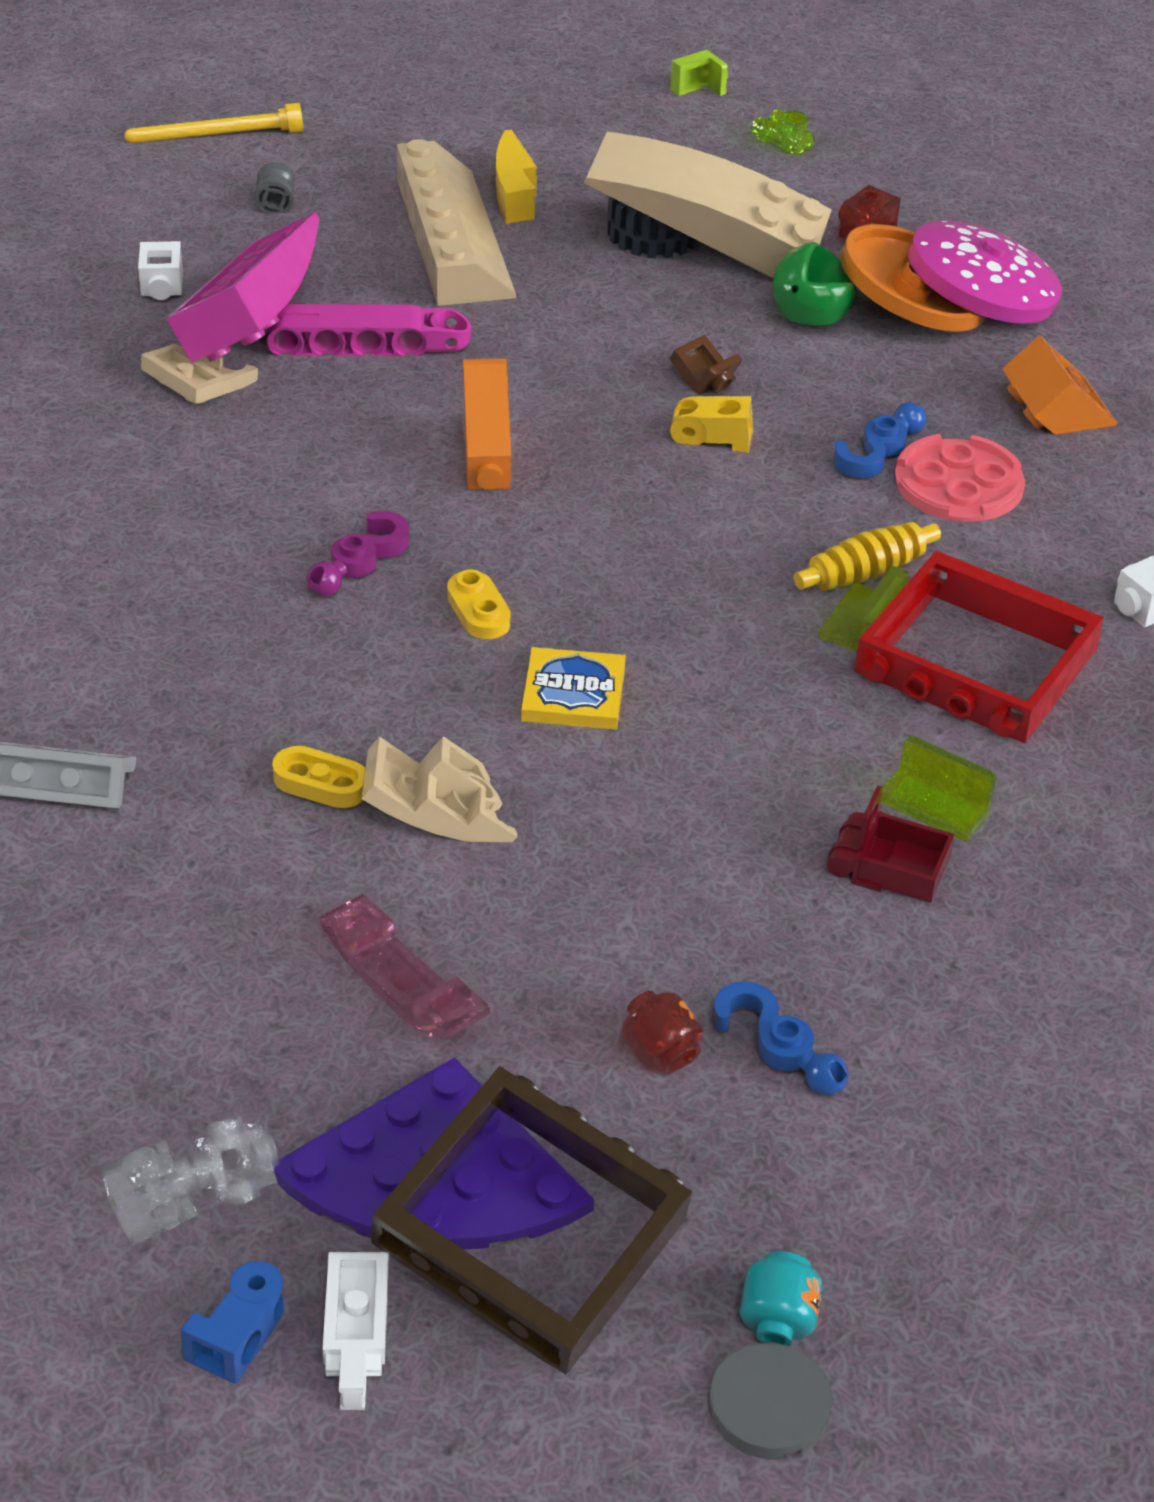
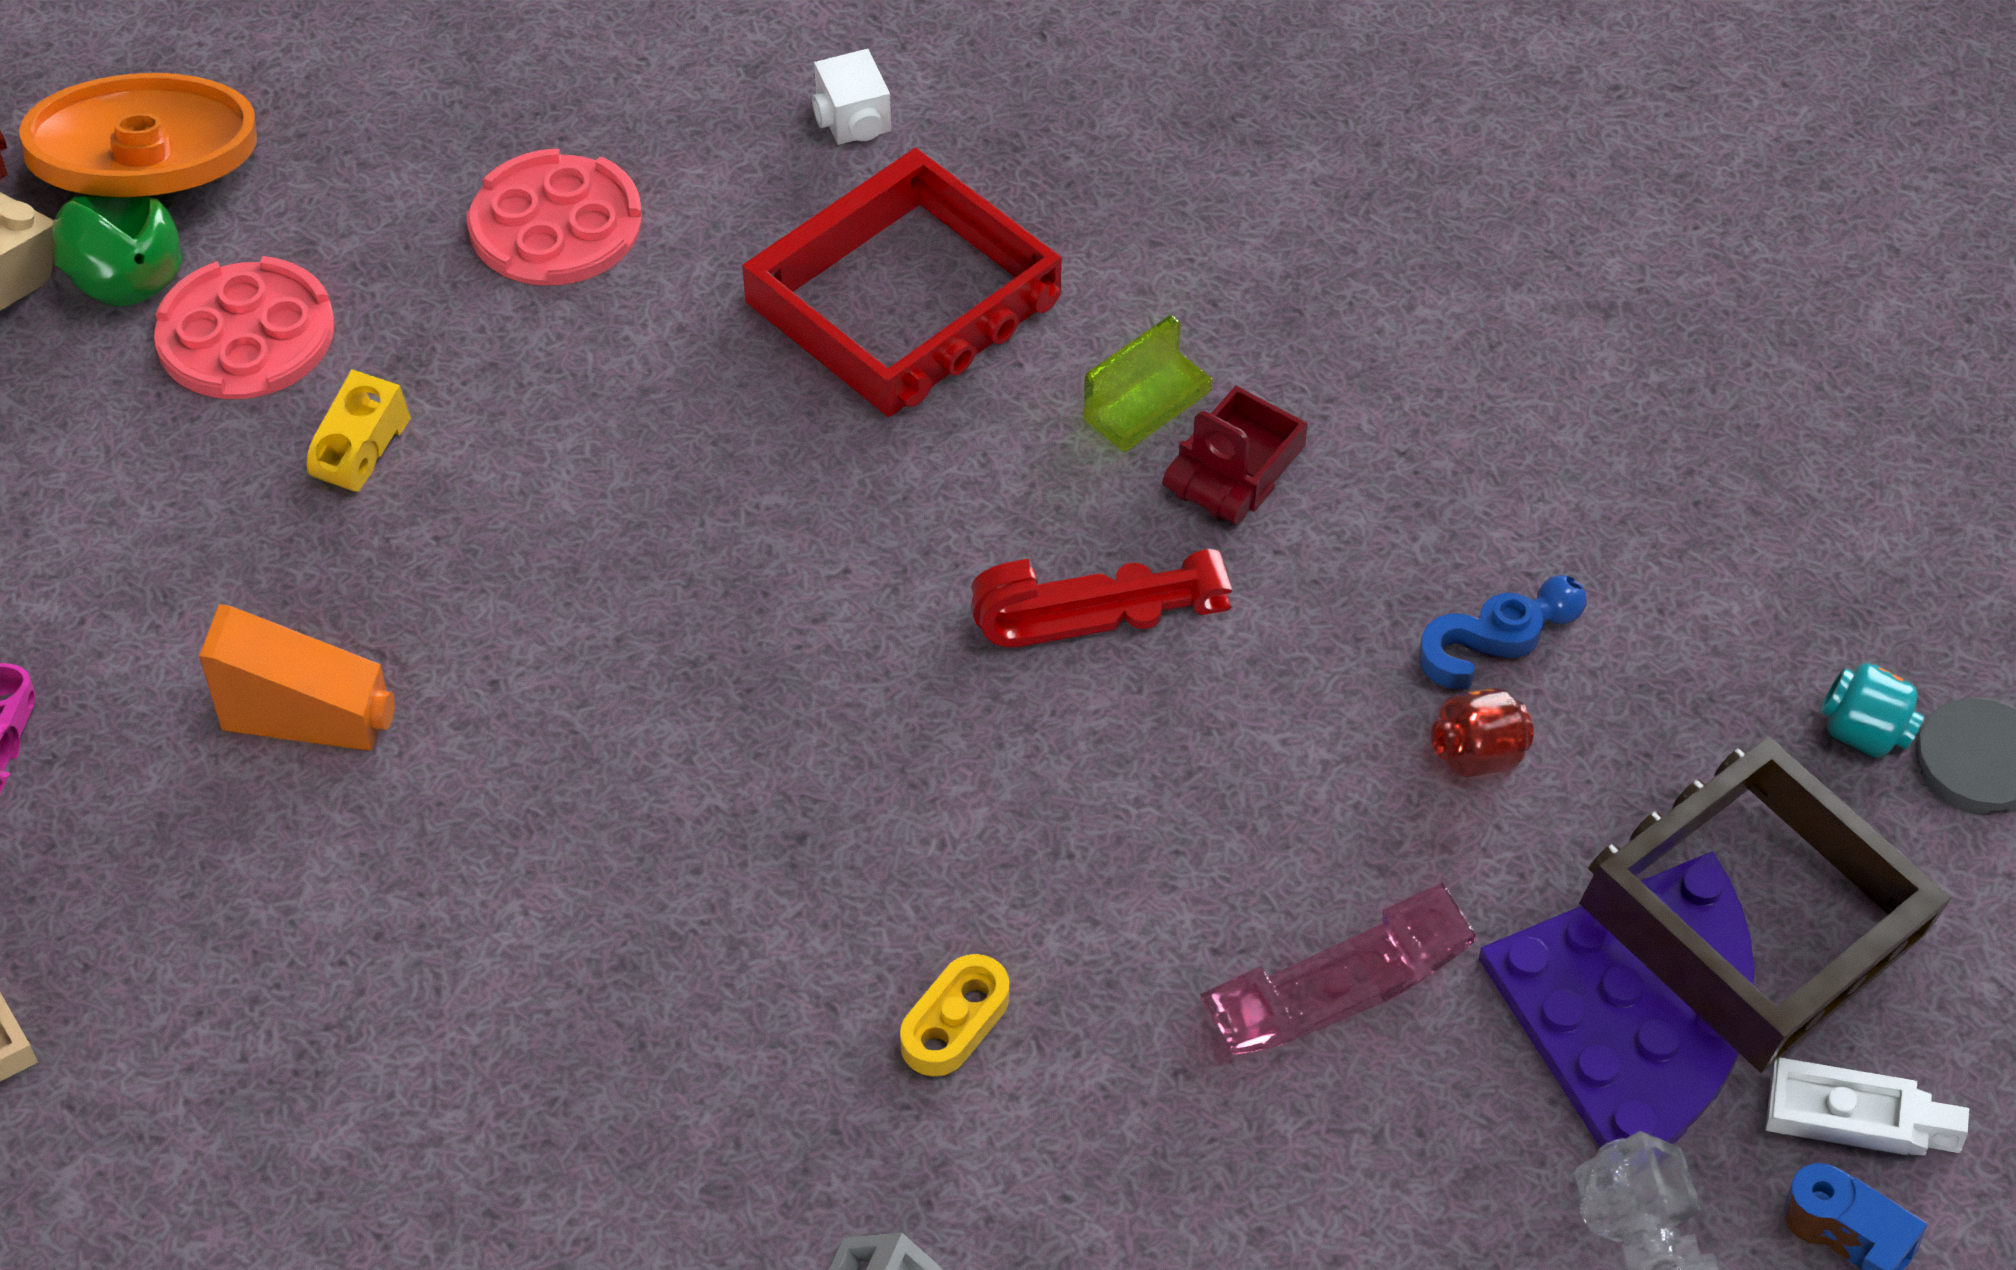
camera: 75 degrees left, 10 degrees up
(358, 554) = (495, 900): magenta piece -> none
(441, 794) = (1013, 891): tan slope -> none
(478, 604) = (643, 779): yellow plate -> none
(573, 688) = (846, 706): tile -> none
(704, 366) = (225, 414): reddish brown bracket -> none
(713, 793) = (1023, 614): none -> red piece
(791, 367) = (243, 328): none -> coral tile
(861, 608) = (799, 372): clear neon green panel -> none
(867, 556) = (695, 344): yellow piece -> none
(882, 438) = (457, 268): blue piece -> none
(984, 271) = (150, 64): dark pink dish -> none
(1055, 391) = (434, 73): orange slope -> none

